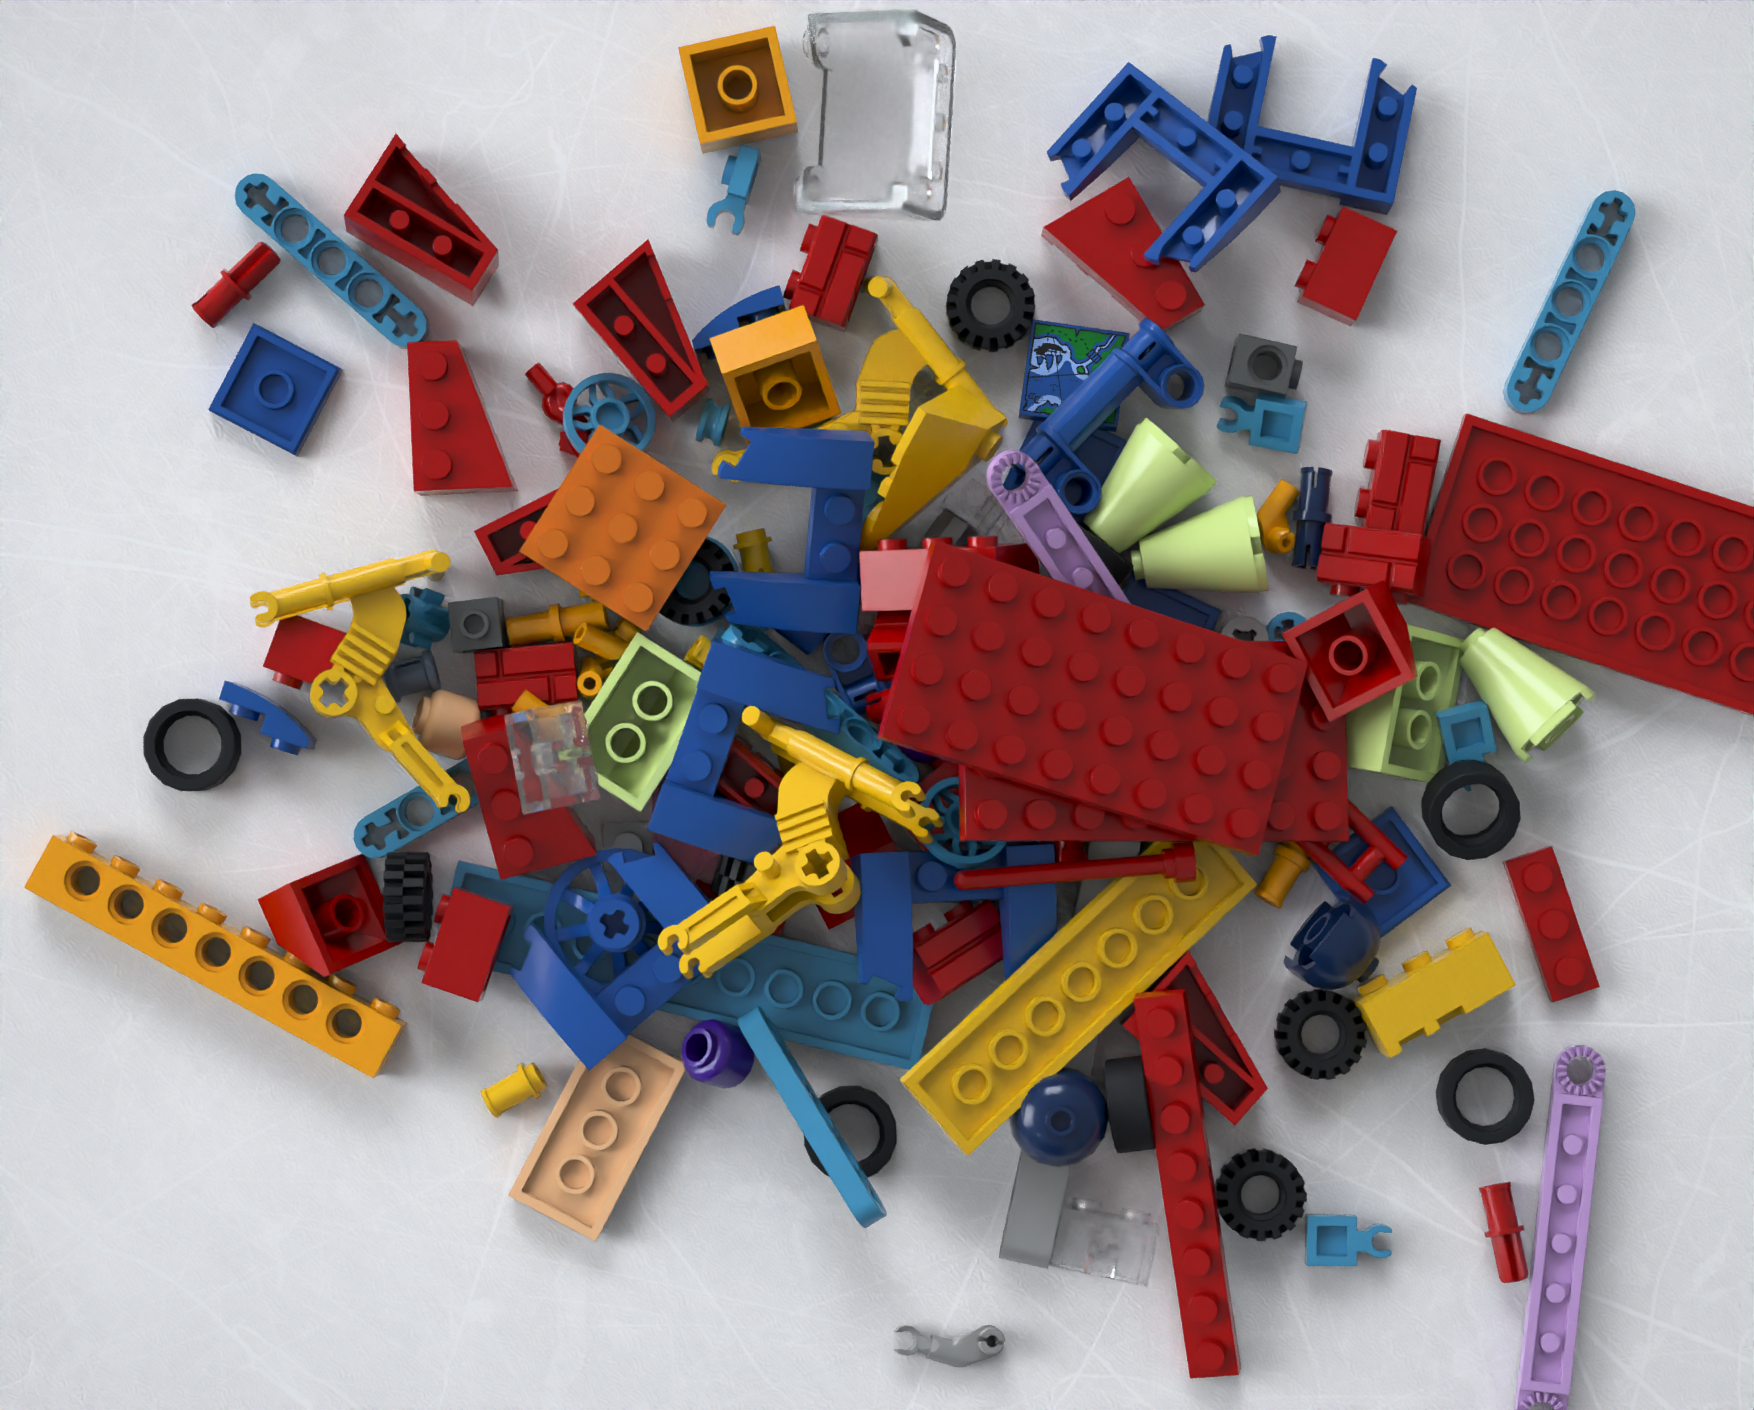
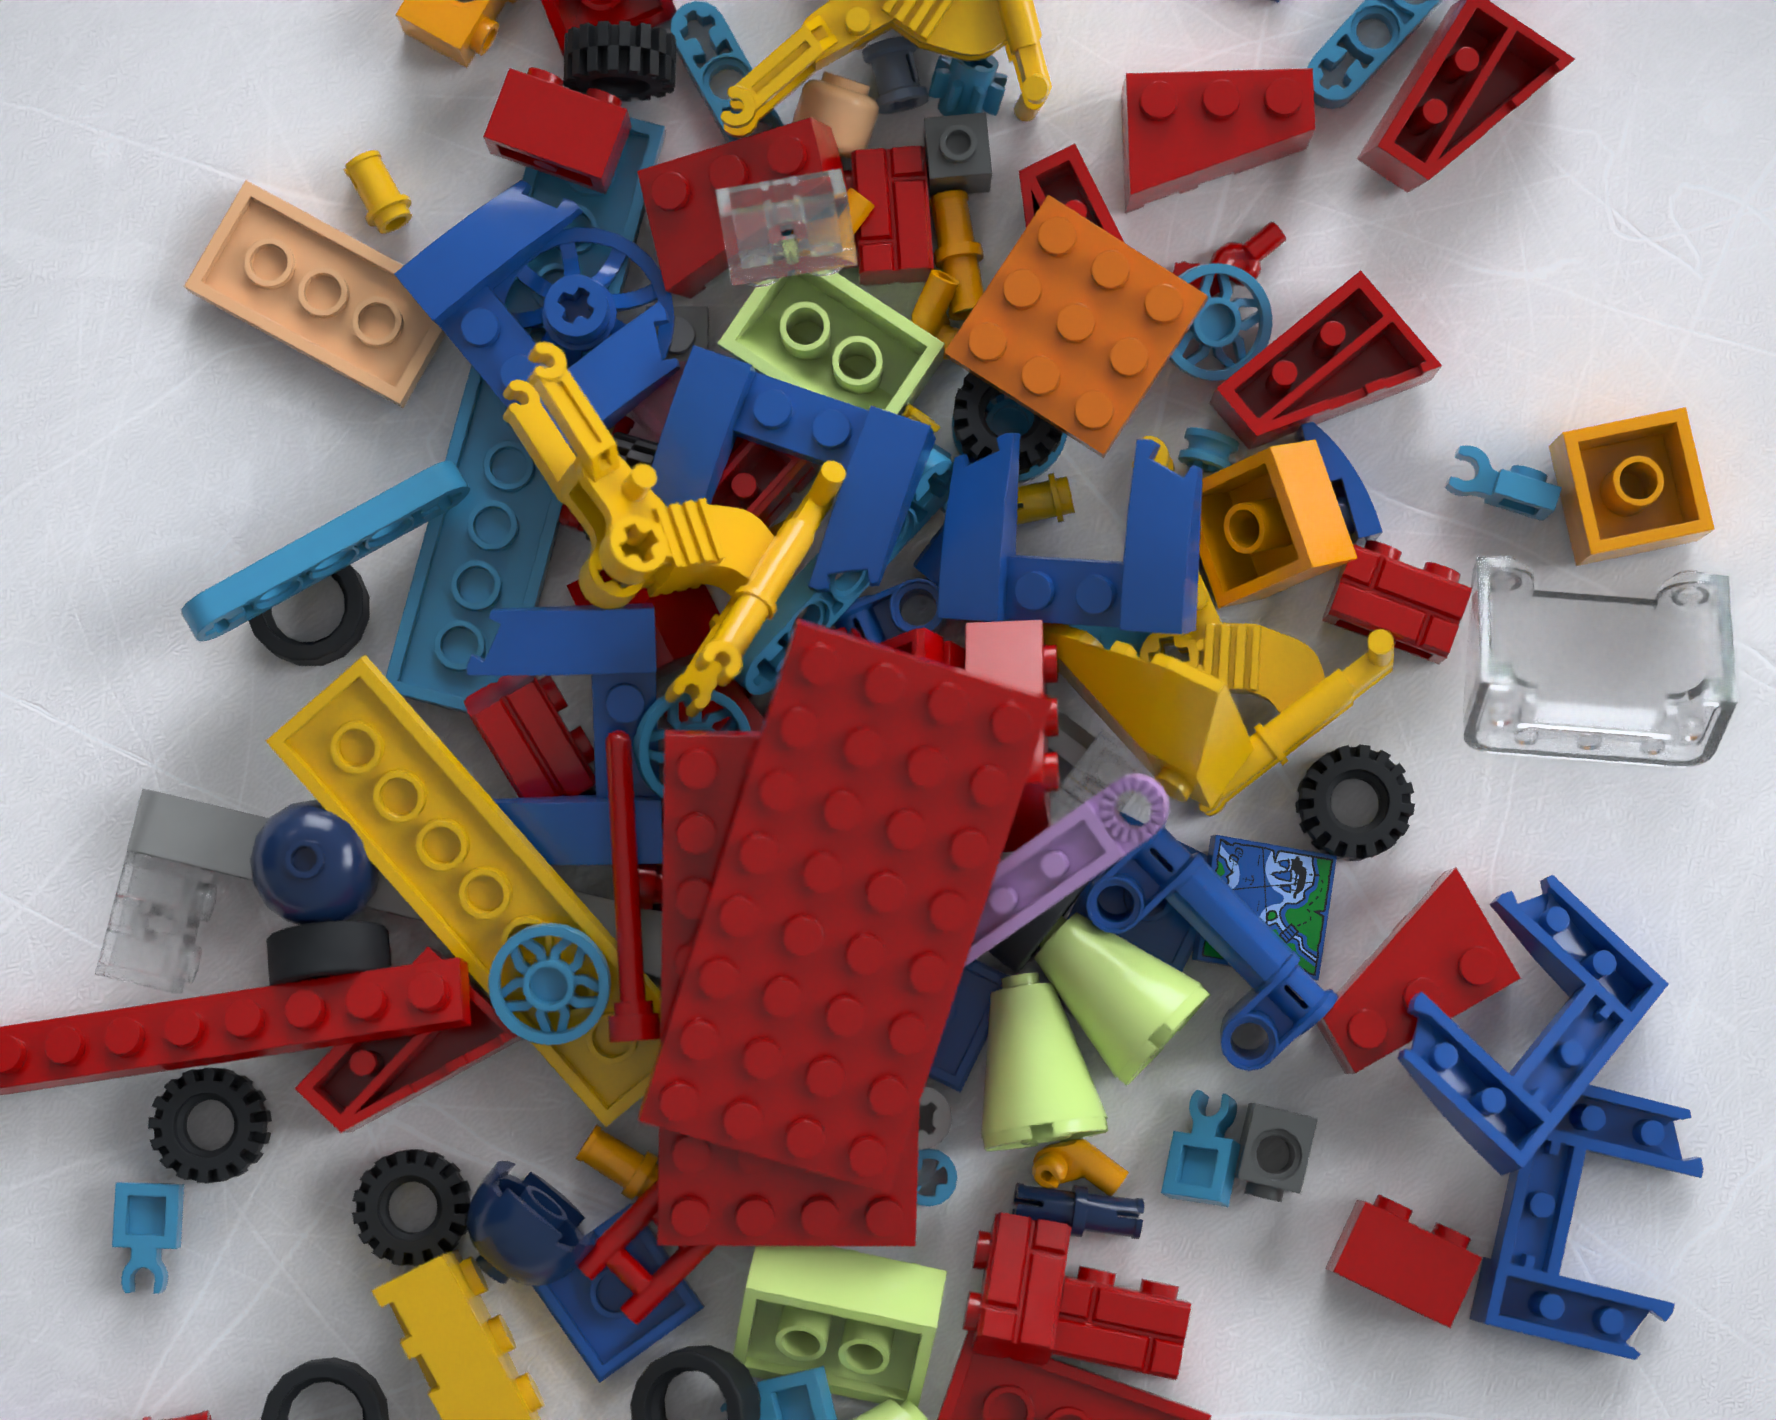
camera: 85 degrees right, 5 degrees down
(591, 675) = (891, 292): light orange arm -> none
(717, 1054) = (411, 436): dark purple head -> none
(956, 1352) = (27, 737): light grey arm -> none
(1150, 929) = (549, 983): none -> dark azure wheel
(1354, 650) = (903, 1256): red slope -> none

